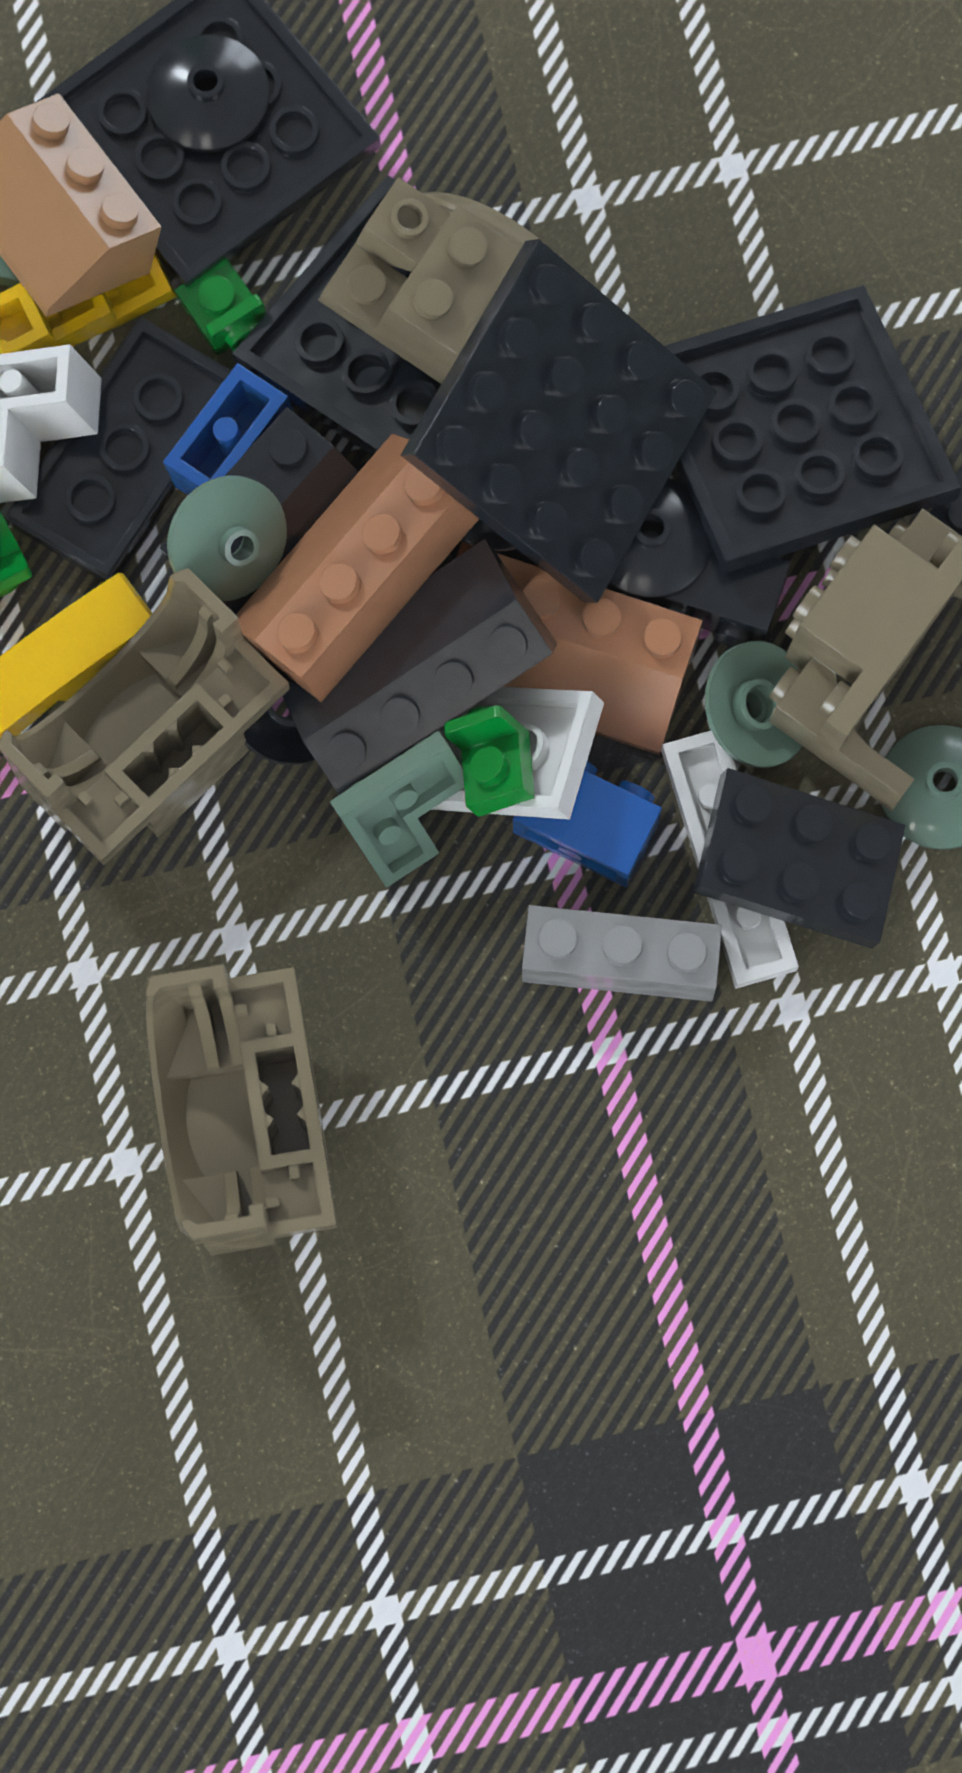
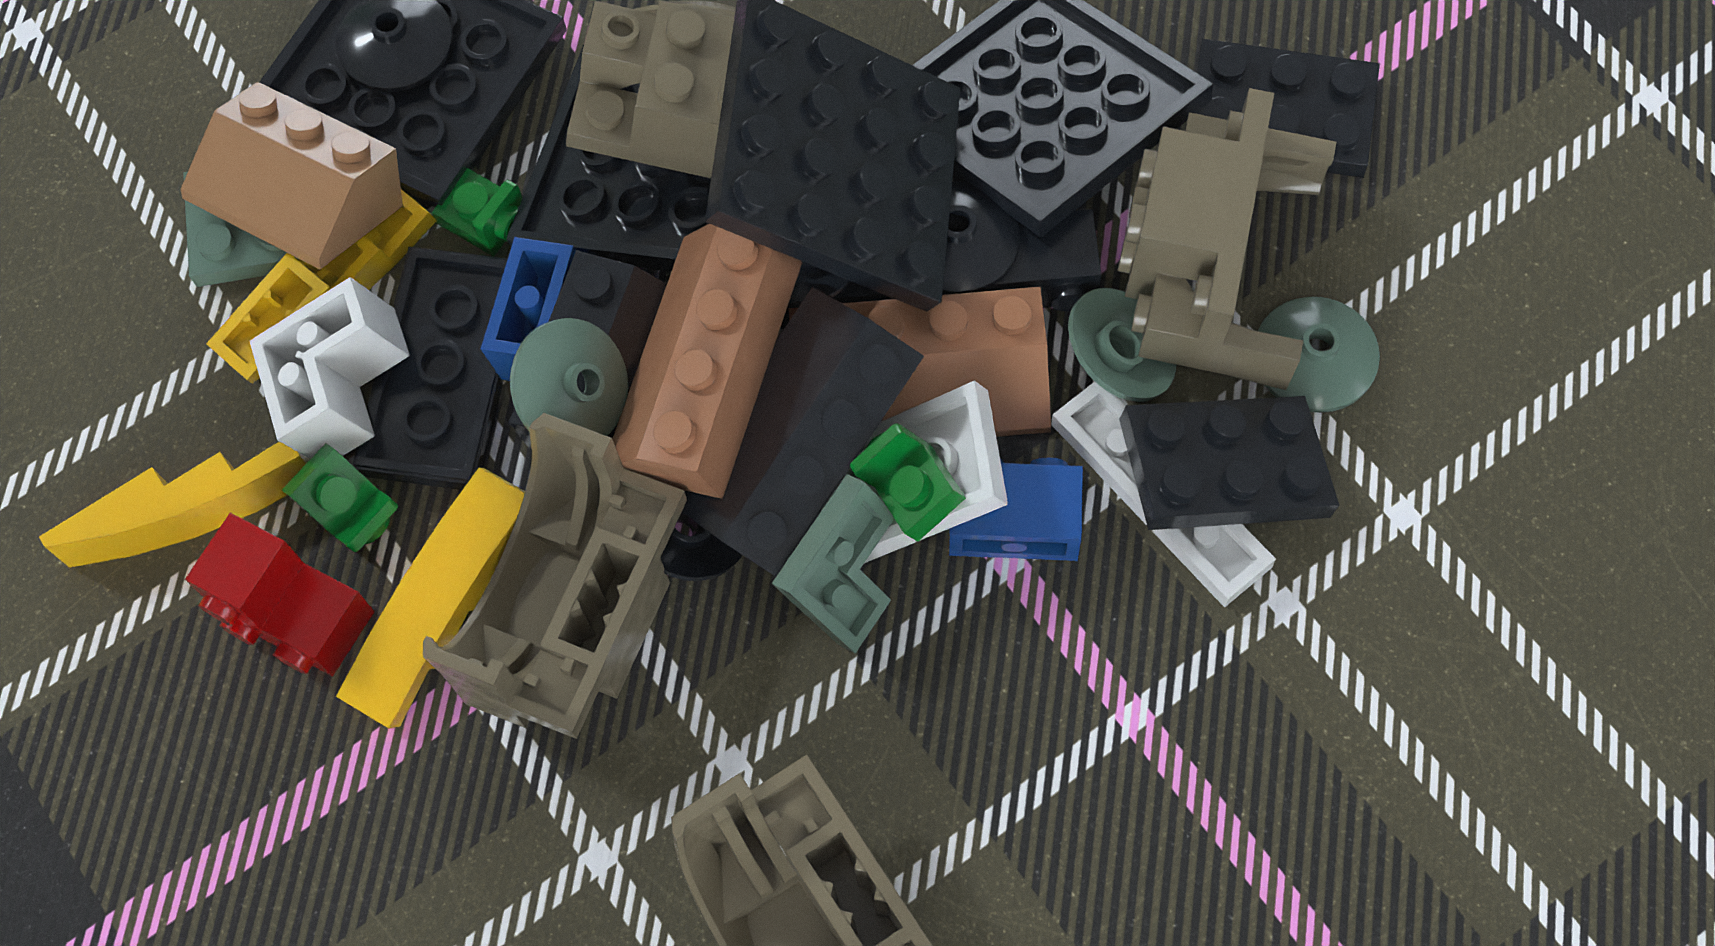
camera: 20 degrees left, 10 degrees down
(621, 953) = (1107, 616): light grey brick -> none

